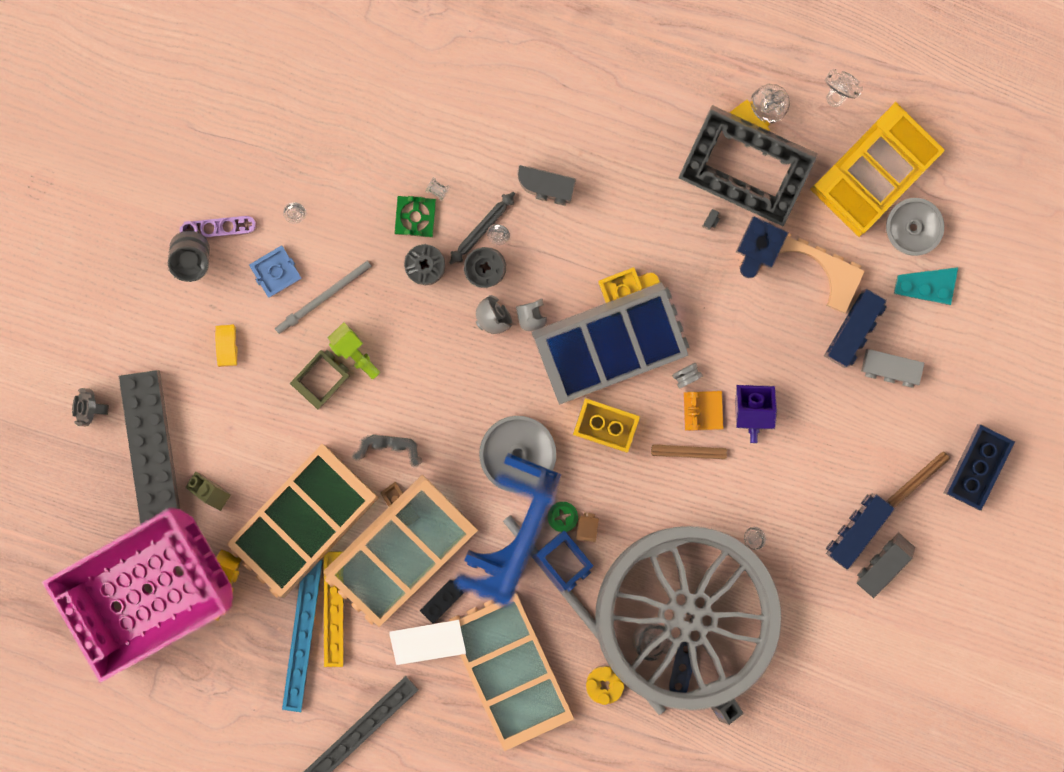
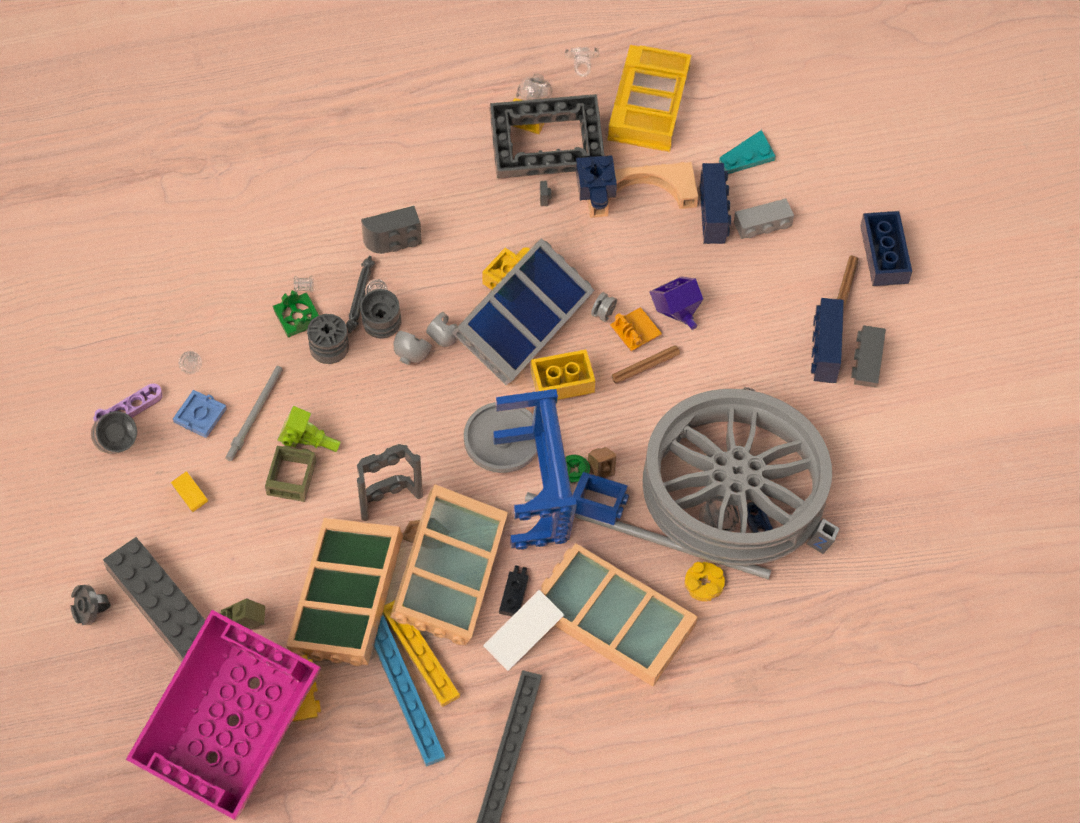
camera: 30 degrees left, 30 degrees down
(928, 222) = (707, 115): light grey dish -> none

